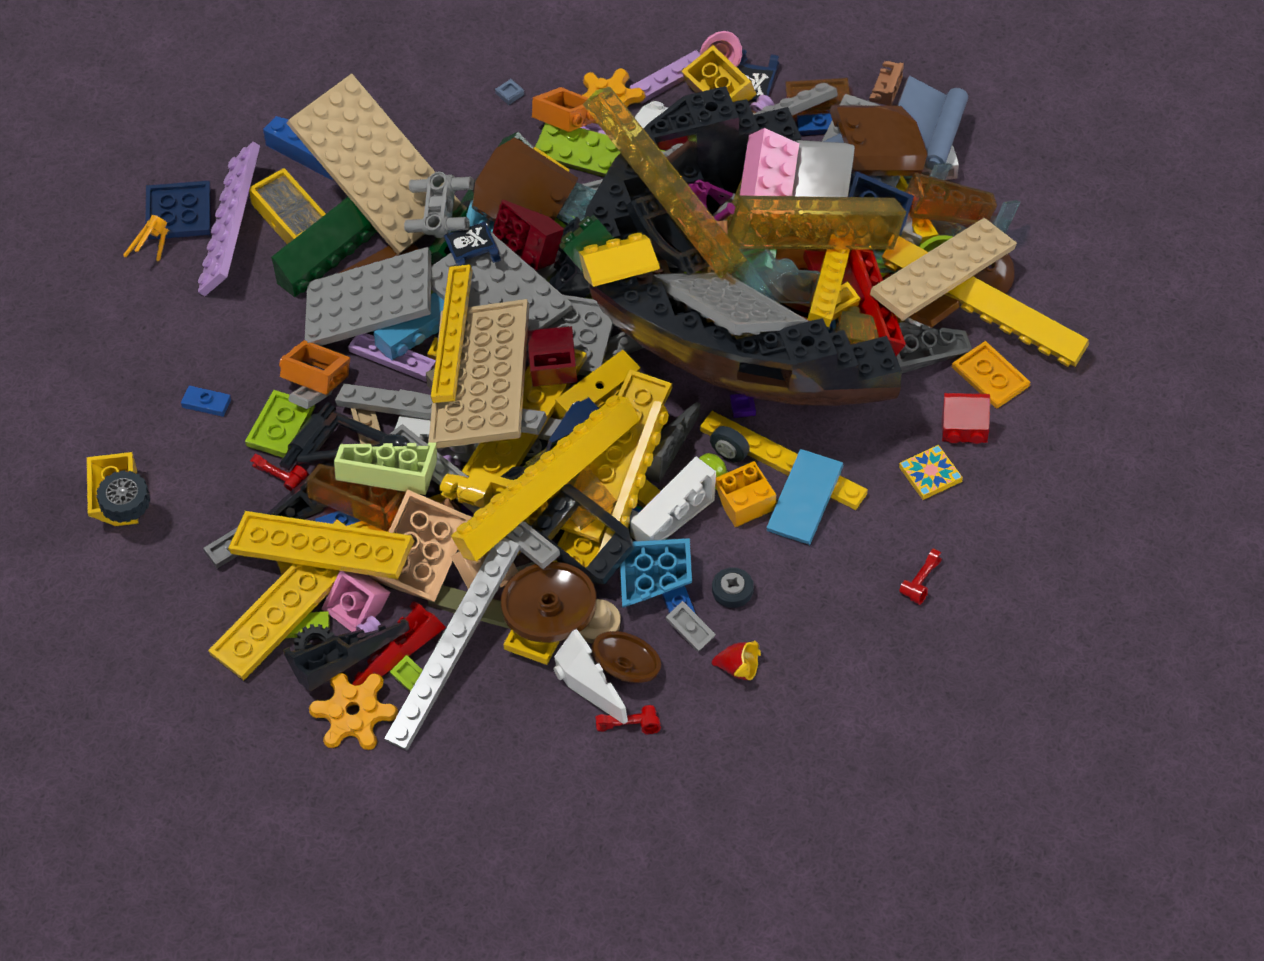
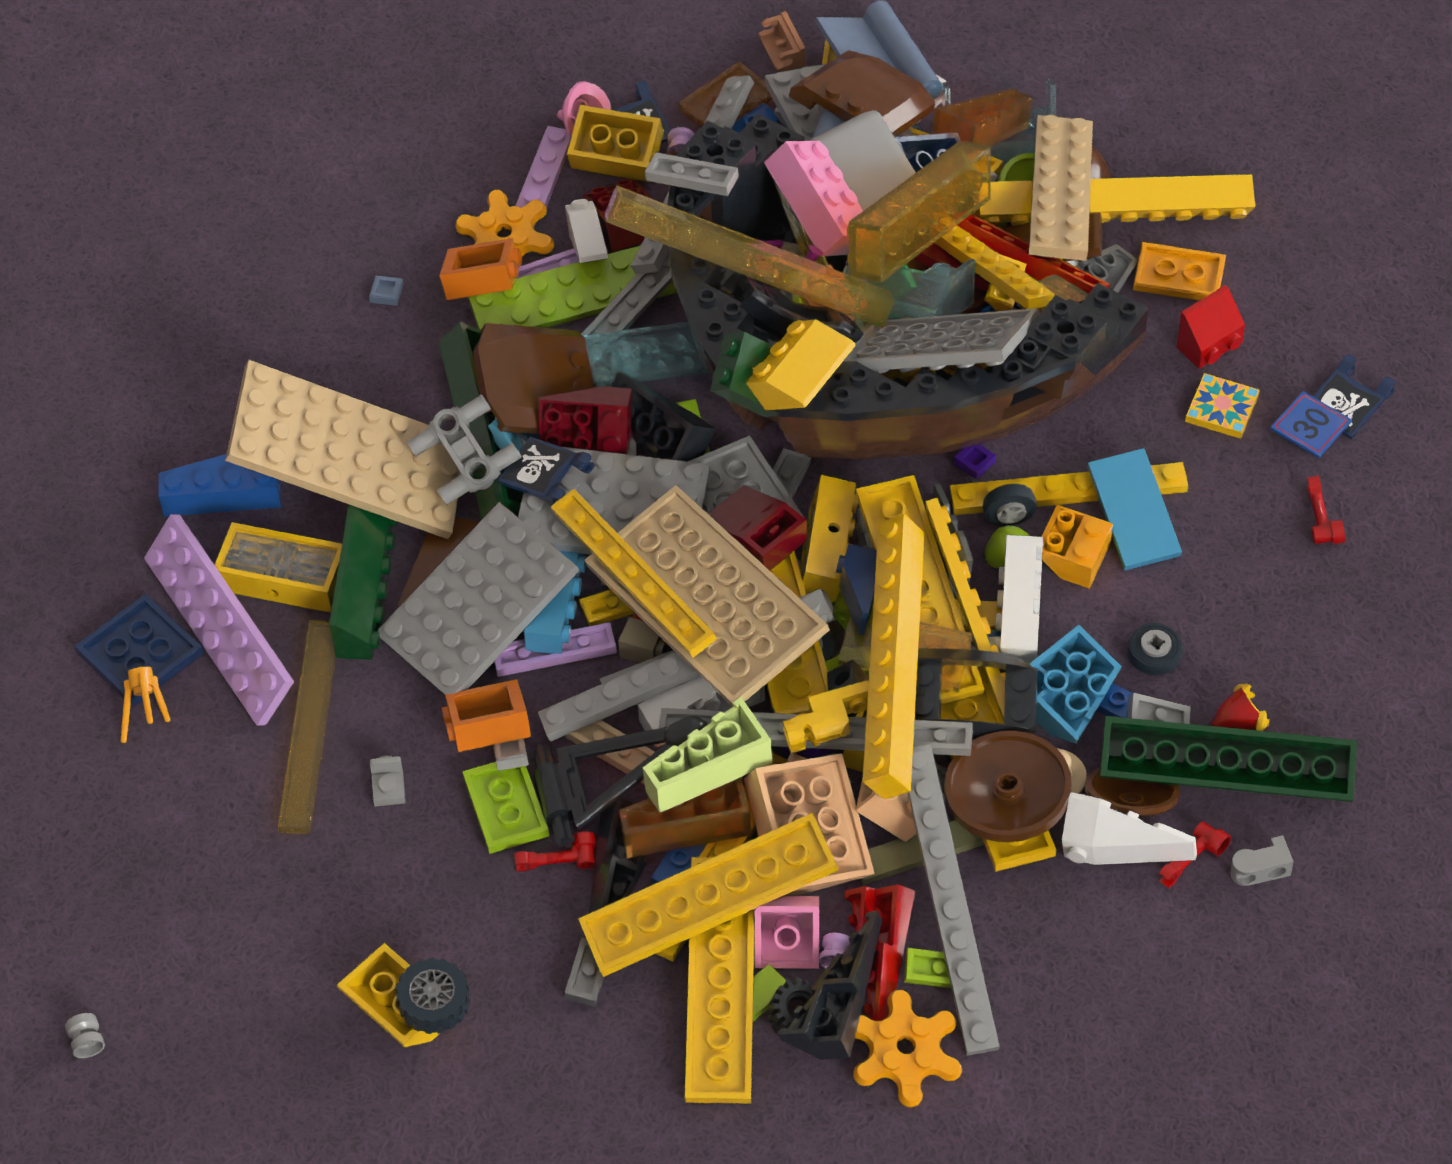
camera: 40 degrees left, 0 degrees up
(206, 401) = (391, 836): blue plate -> none
(216, 317) = (308, 730): none -> clear yellow tile
(233, 369) = (387, 781): none -> light grey bracket
(662, 755) = (1262, 864): none -> light grey leg
(676, 110) = (691, 174): none -> light grey plate
(702, 681) = (1228, 758): none -> dark green slope
(970, 518) = (1311, 424): none -> blue piece
(1013, 520) = (1353, 397): none -> flag

